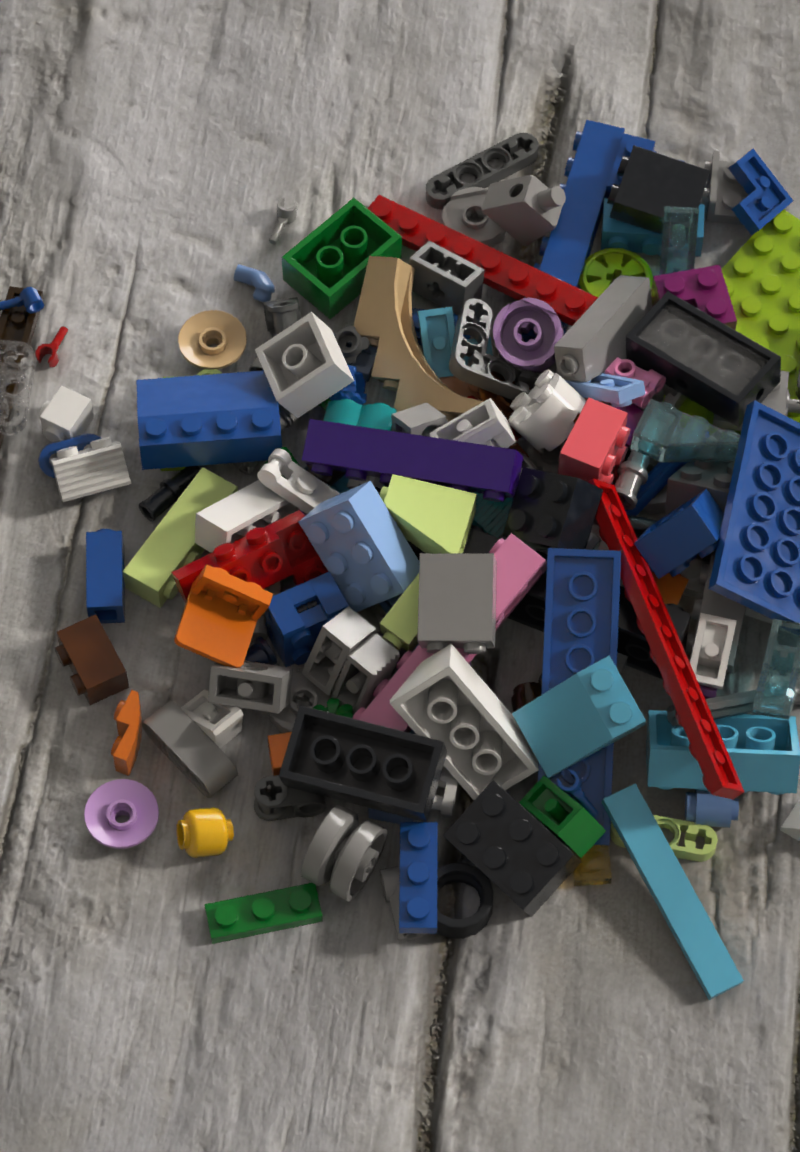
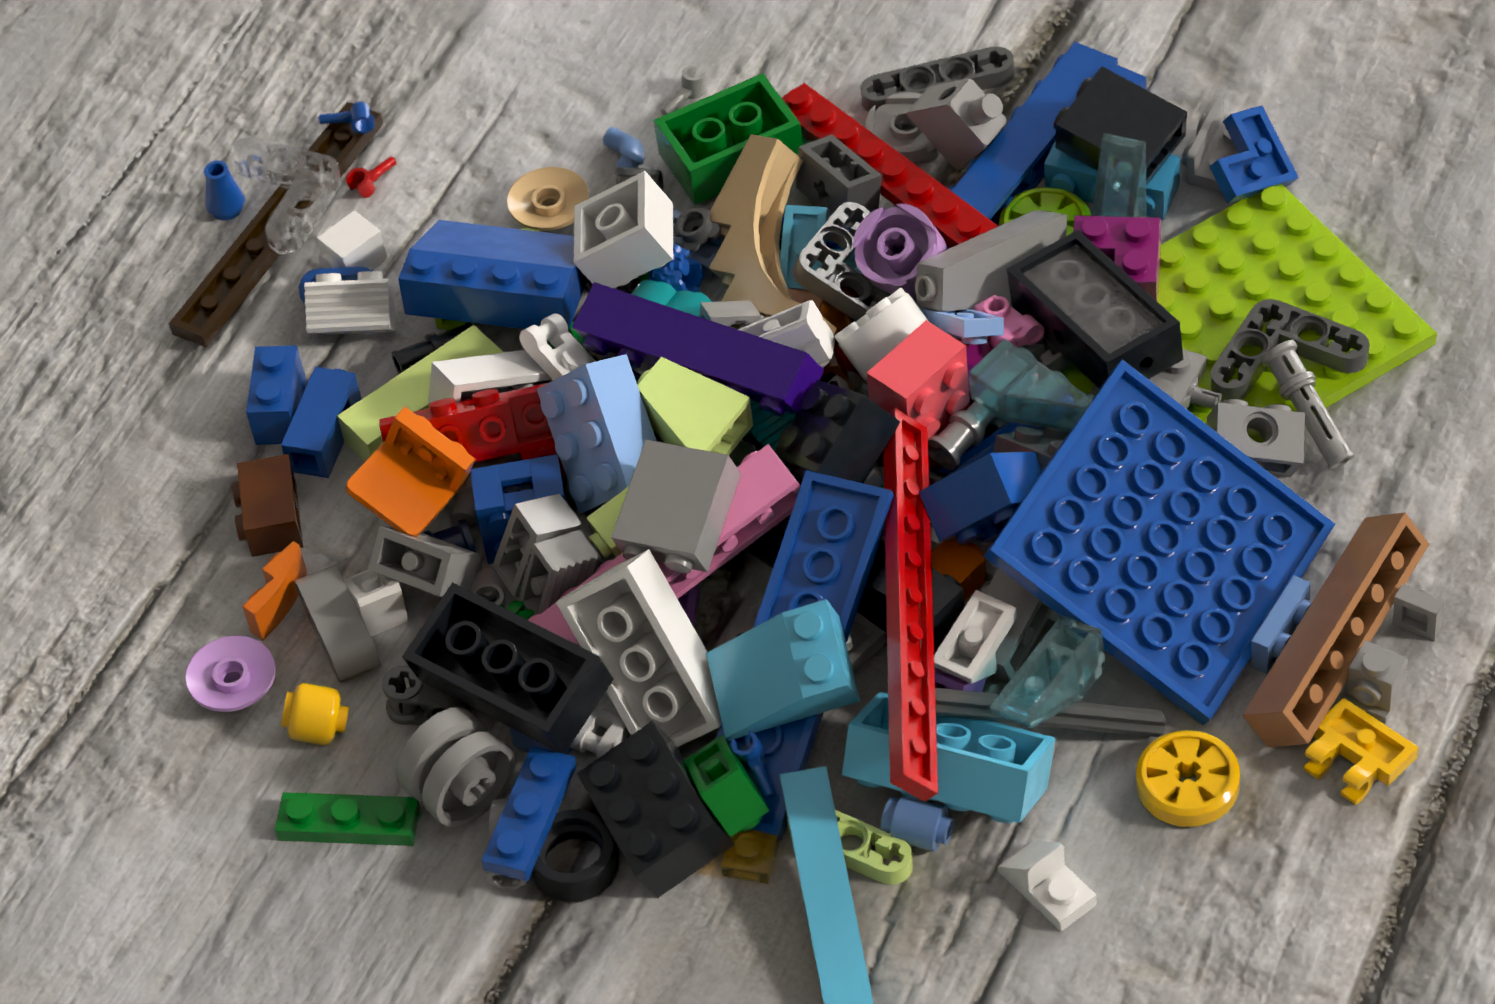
camera: 25 degrees right, 10 degrees down
(59, 562) = (274, 392): none -> blue brick

